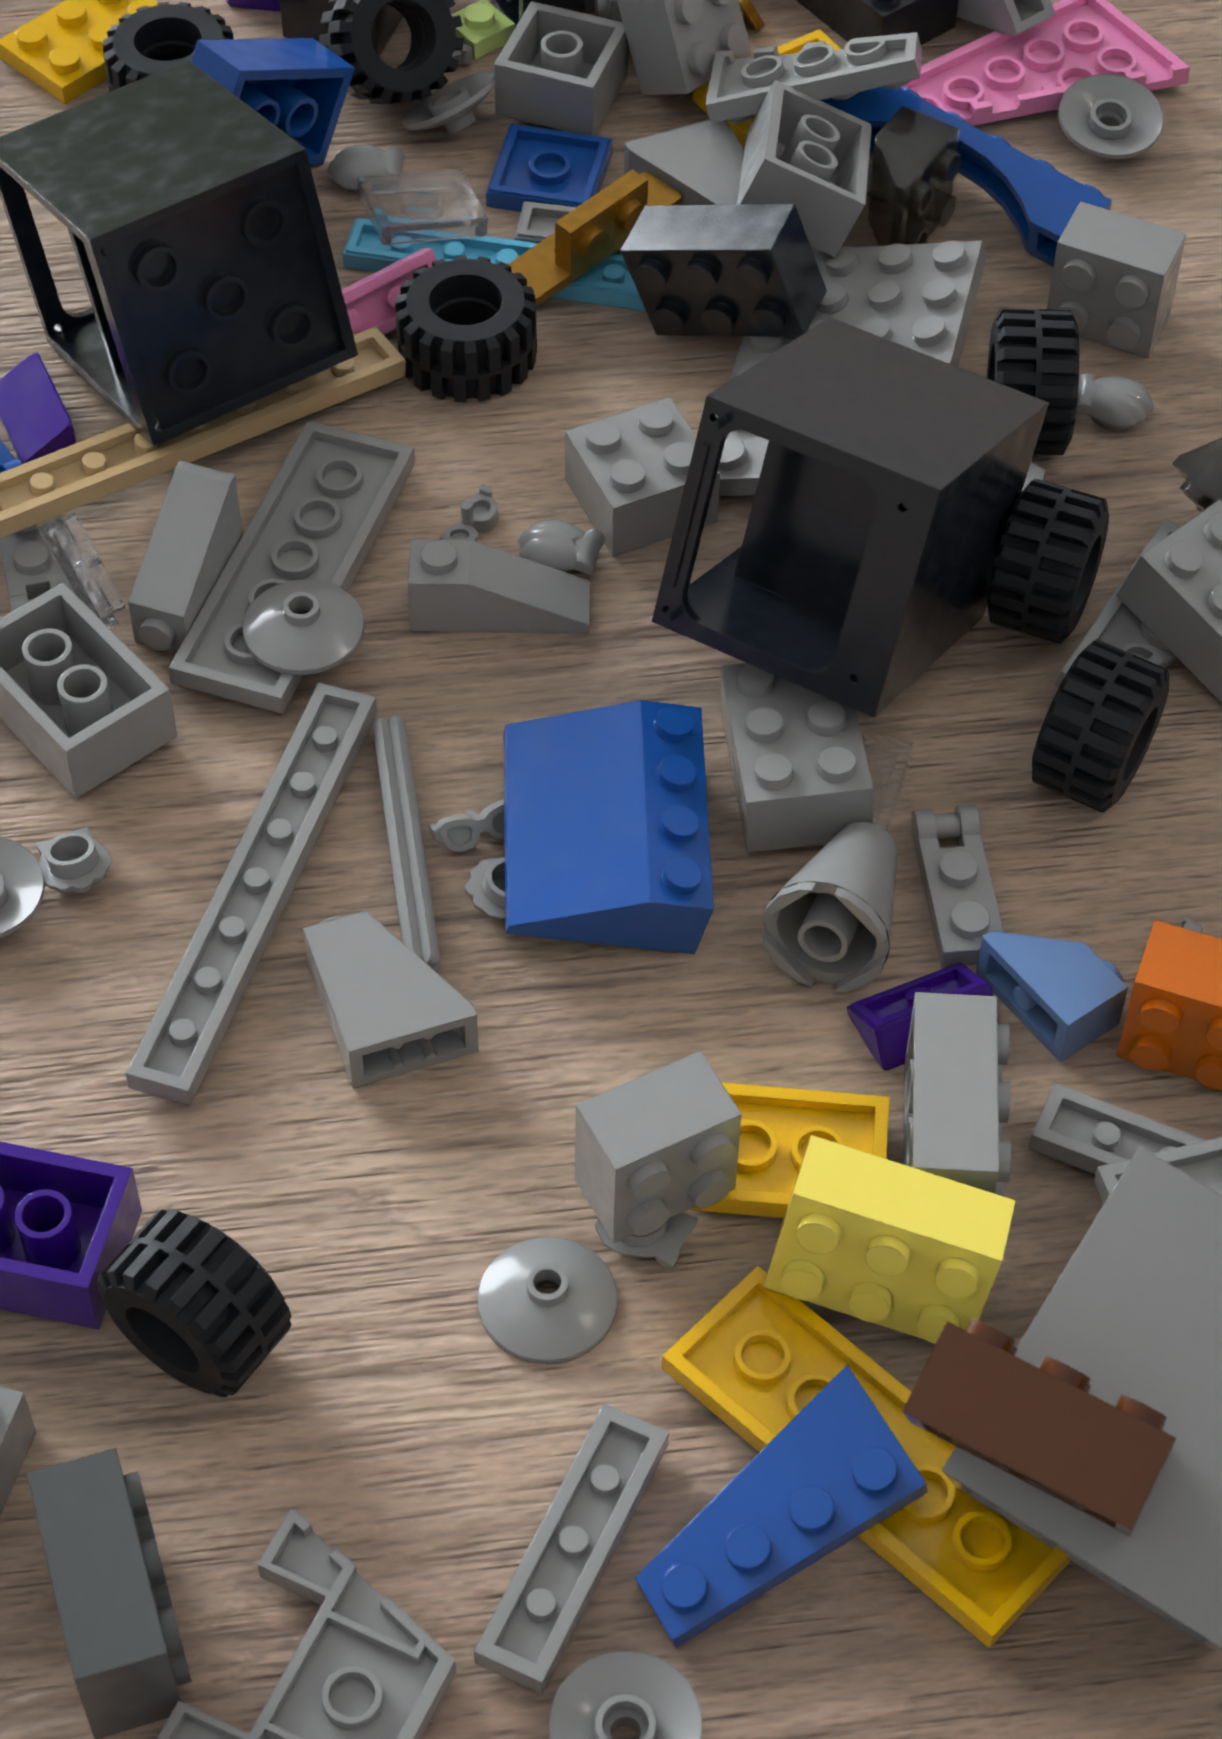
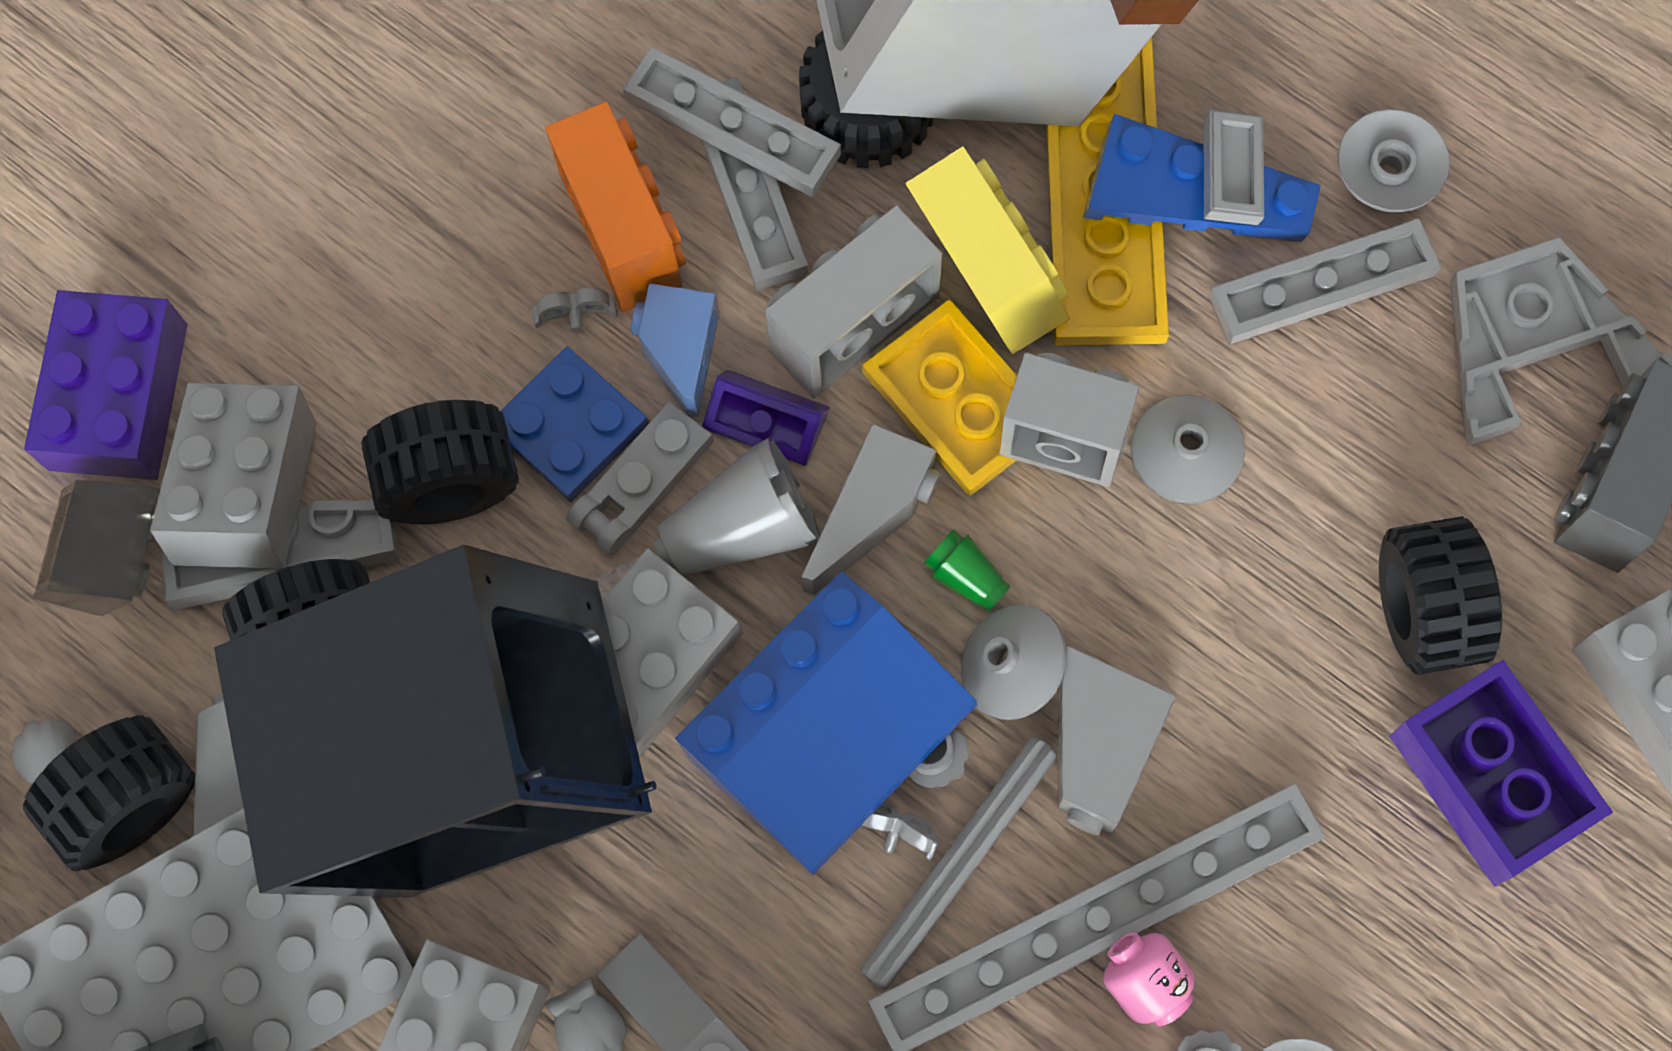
camera: 130 degrees left, 20 degrees up
(175, 866) = (1149, 978): none -> bright pink head
(510, 989) = (1030, 671): none -> light grey dish
(624, 1029) = (967, 570): none -> green cone
(762, 1021) = (874, 502): none -> light grey slope
(762, 1535) = (1233, 167): none -> light grey tile
(1063, 875) = (570, 423): none -> blue plate

